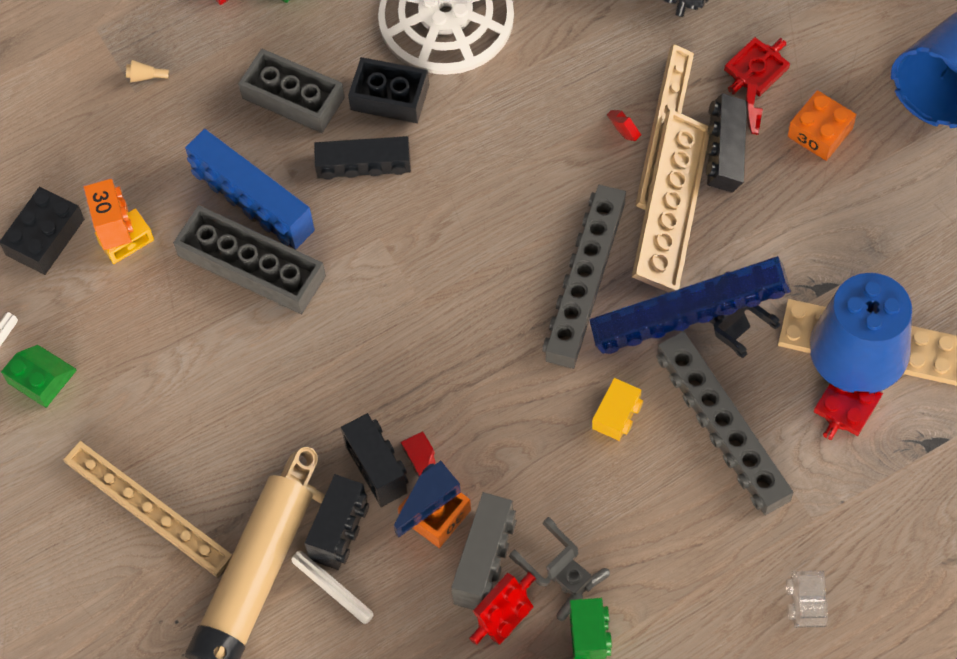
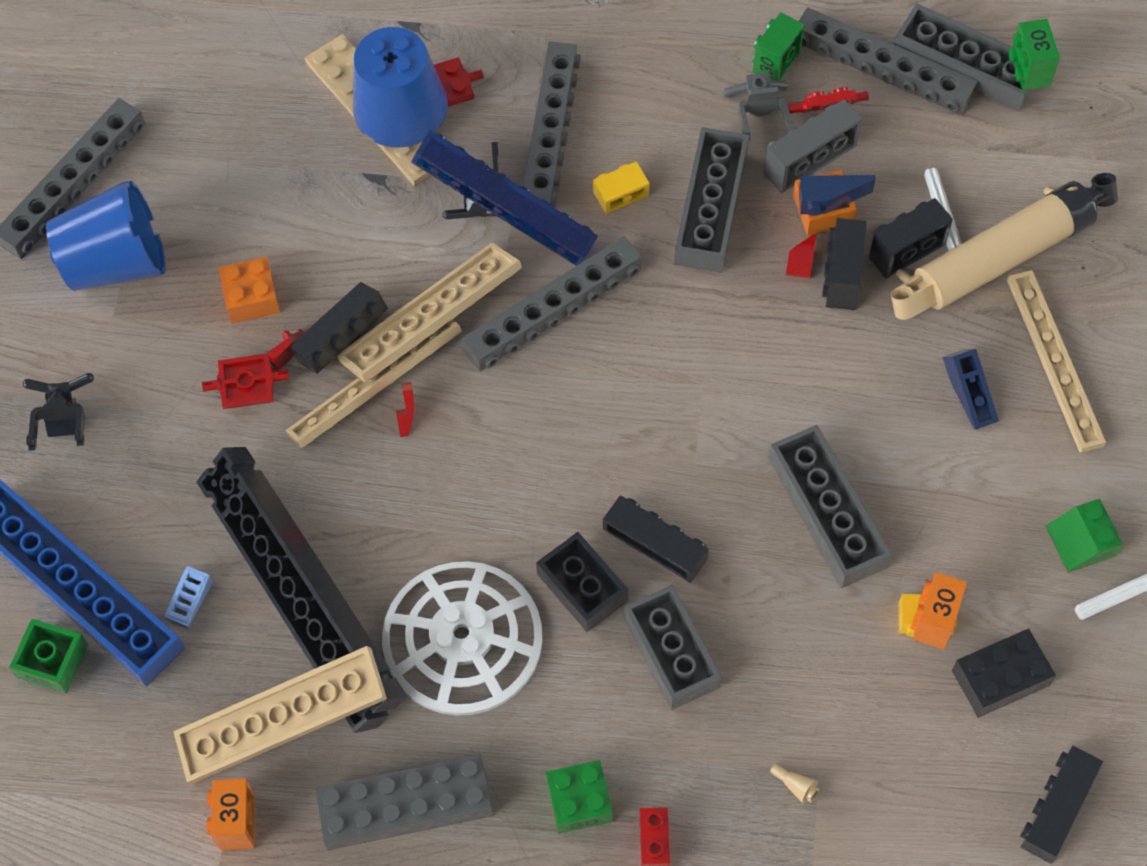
camera: 145 degrees left, 0 degrees up
(204, 434) = (971, 387): none -> dark blue slope
(250, 189) = (784, 569): blue brick -> none
(531, 446) = (711, 200): none -> dark grey brick

